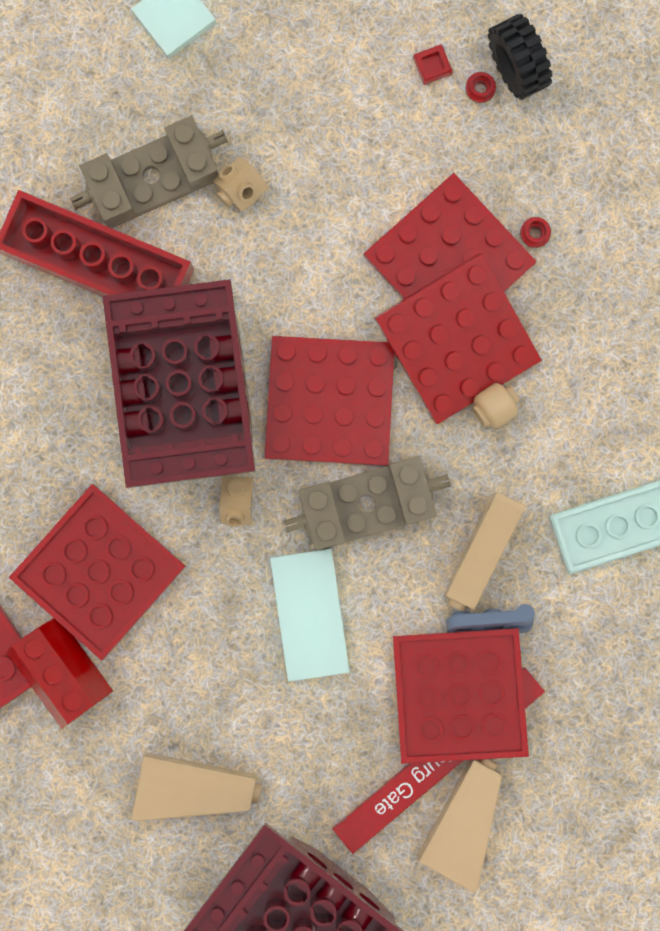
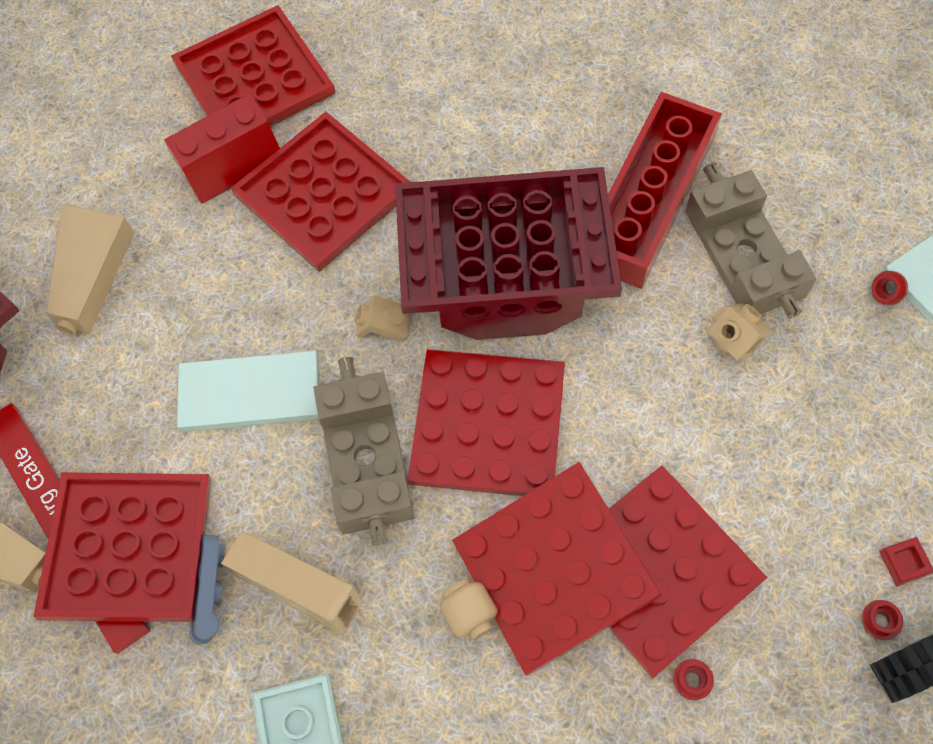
camera: 100 degrees right, 20 degrees down
(195, 57) = (879, 287): none -> red plate

